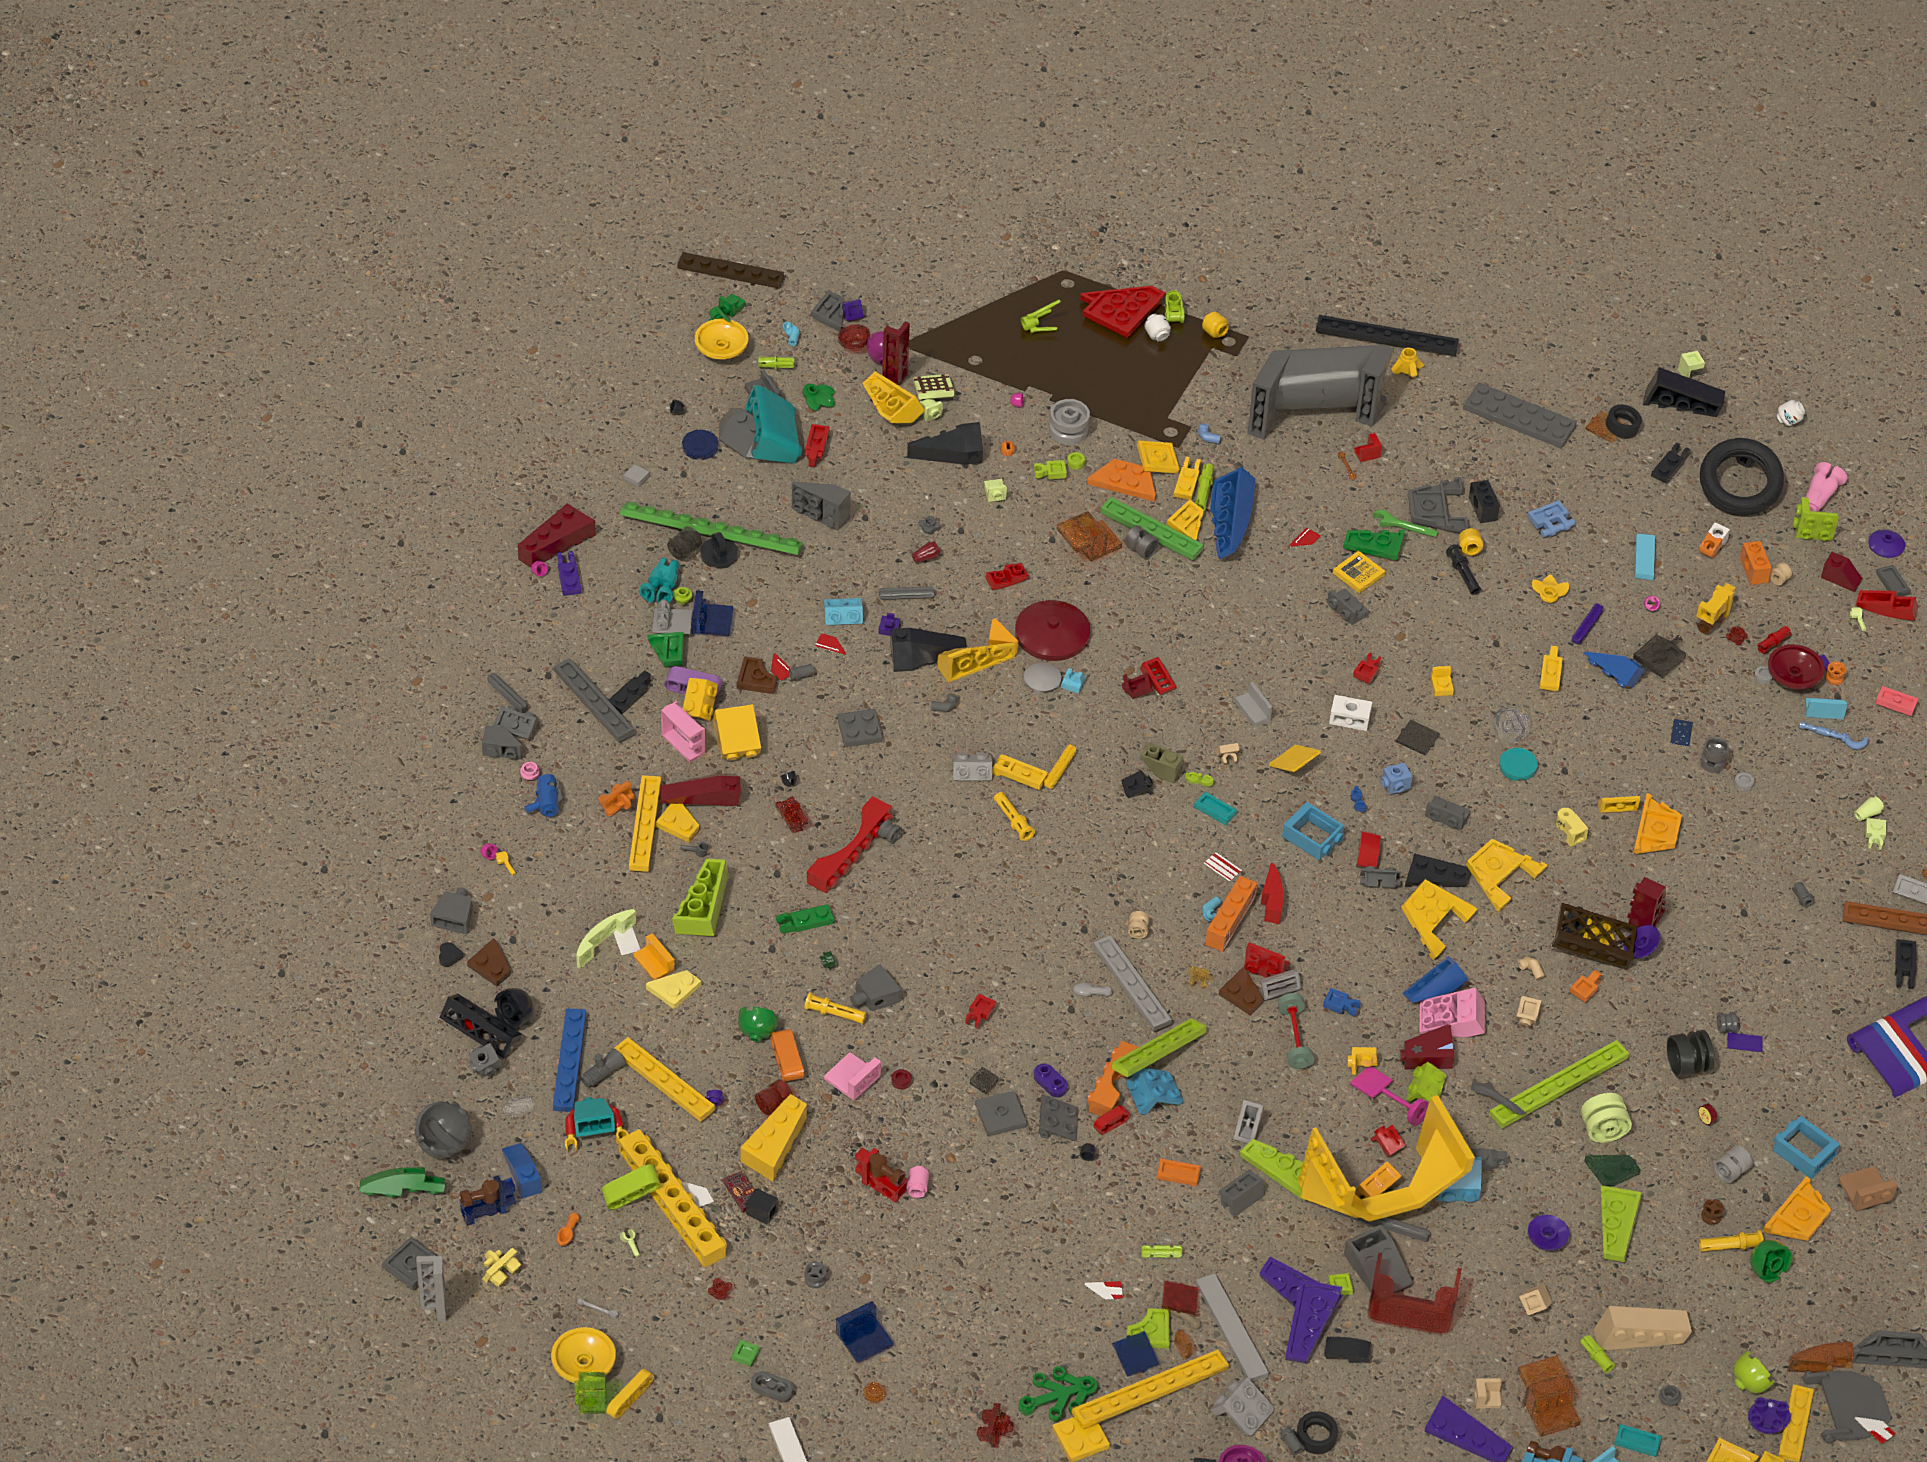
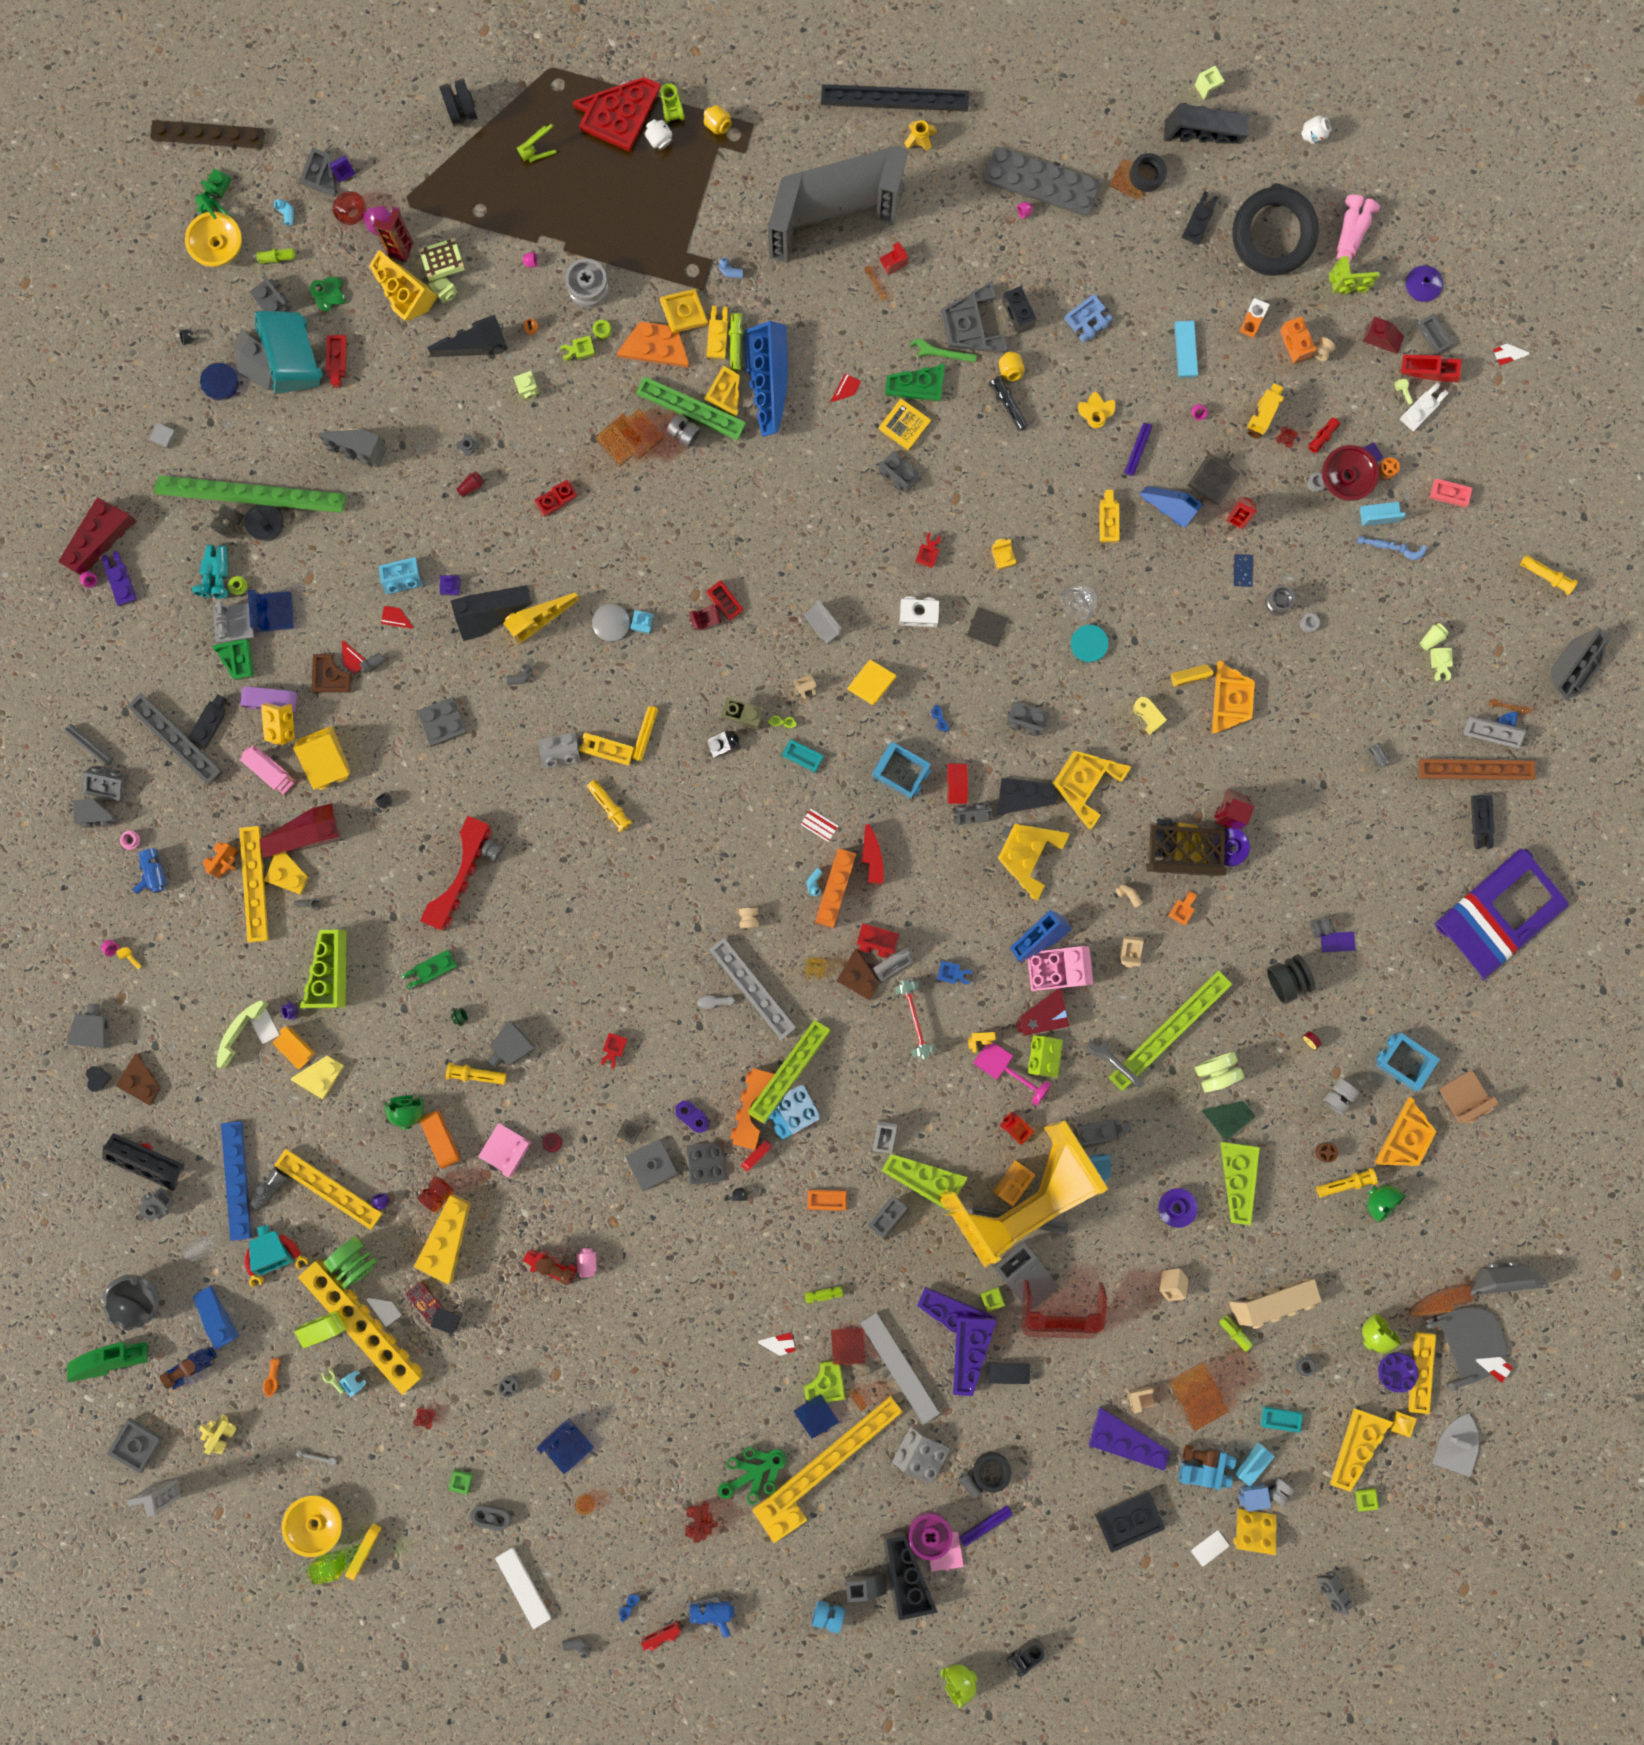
camera: 10 degrees left, 35 degrees up
(514, 1007) = (172, 1136): black cylinder -> none
(650, 1246) = (350, 1384): none -> medium azure tile
(657, 927) = (289, 1011): none -> dark purple plate
(675, 1135) = (350, 1262): none -> bright green wheel
(792, 814) = (393, 848): clear red hips -> none
(906, 592) = (459, 539): dark grey axle -> none
(974, 276) = (458, 102): none -> black wheel
(1001, 635) = (560, 584): light orange slope -> none
(1052, 630) = (611, 559): dark red dish -> none
(1396, 778) = (977, 685): medium blue brick -> none
(1500, 431) = (1024, 209): none -> dark pink hinge
(1684, 677) = (1242, 512): none -> red slope
(1876, 633) = (1422, 408): none -> white hinge

